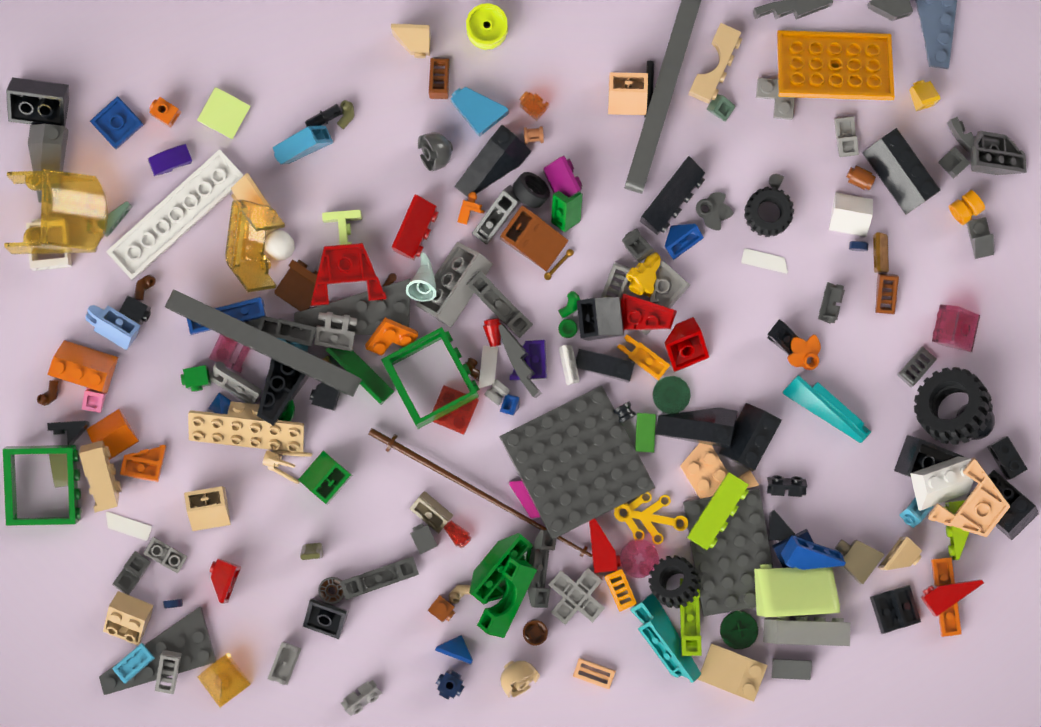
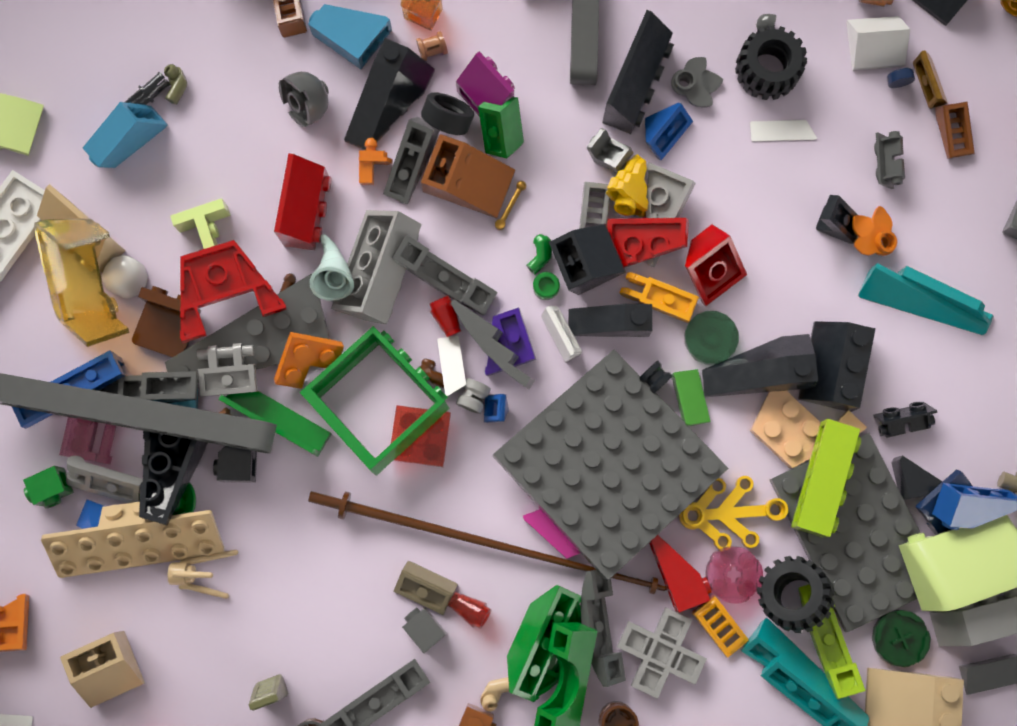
camera: 15 degrees left, 5 degrees down
(325, 477) = (263, 580): green slope -> none

